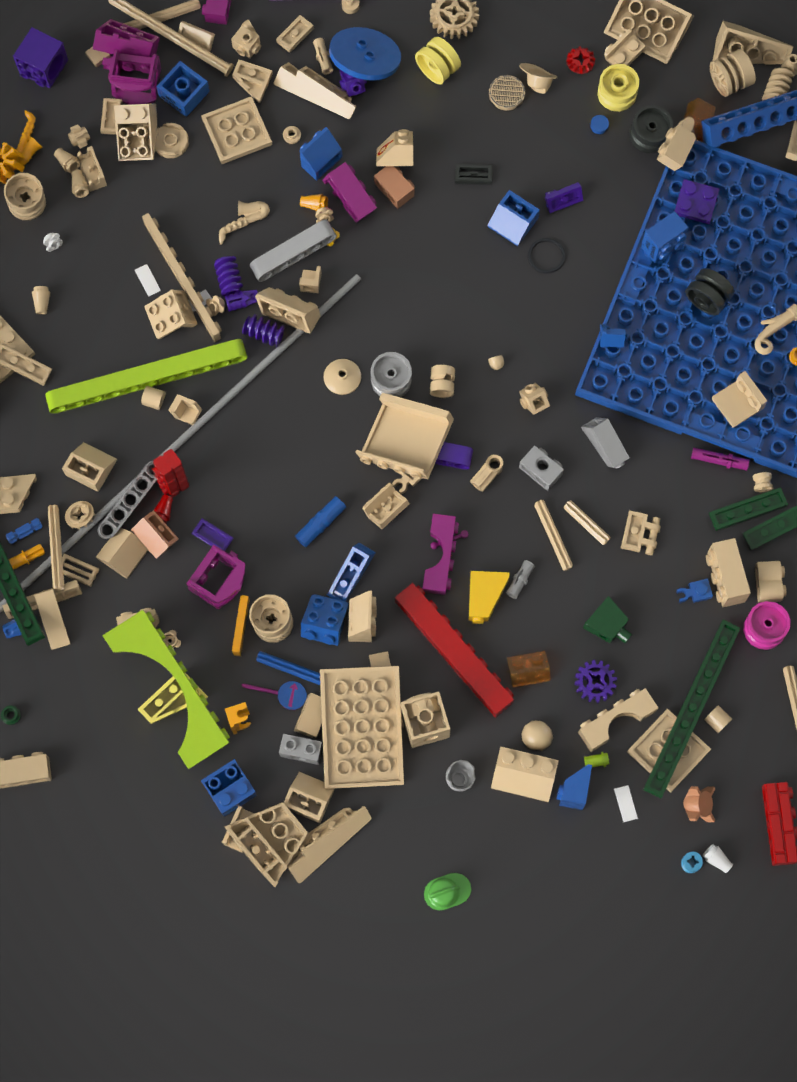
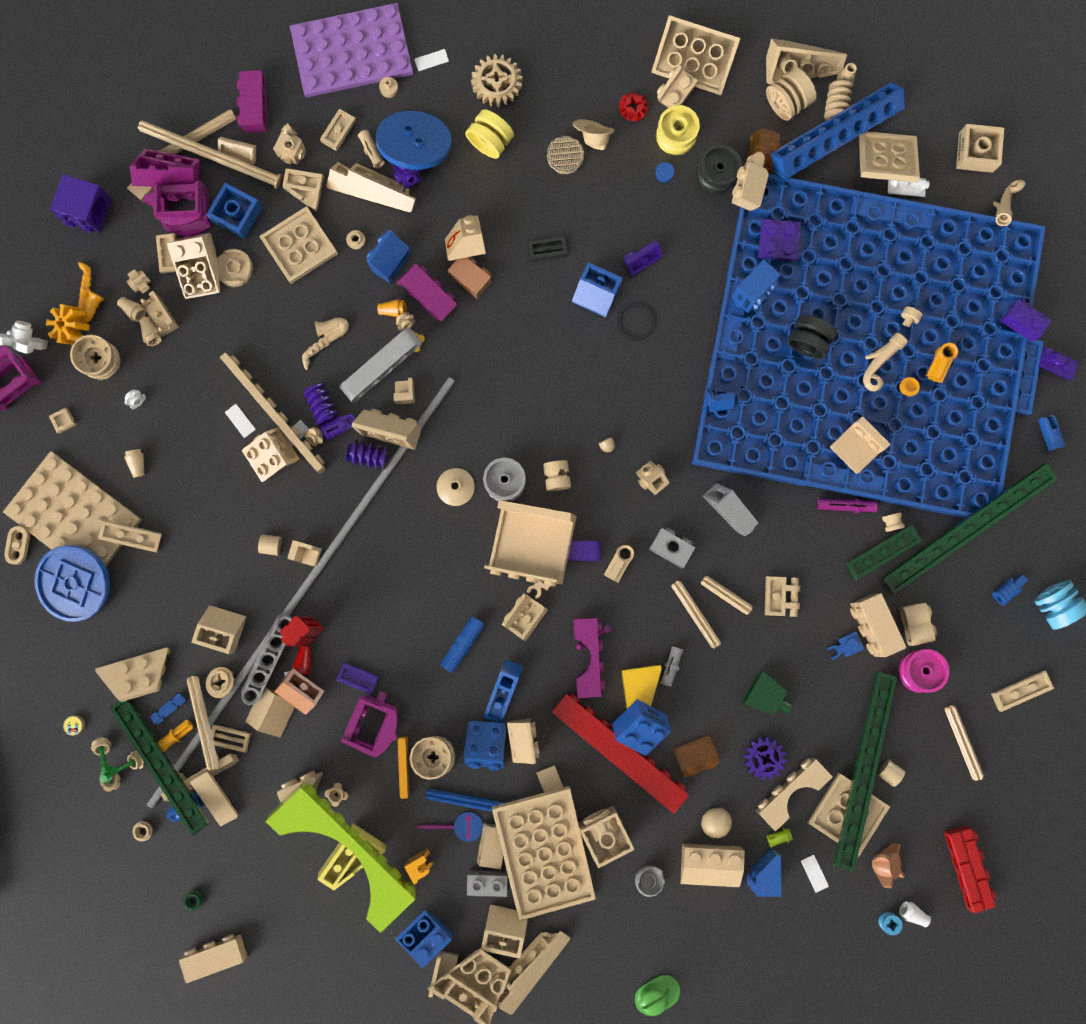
camera: 10 degrees left, 10 degrees up
(146, 375) = (258, 524): lime beam -> none
(479, 625) = (641, 727): none -> blue brick

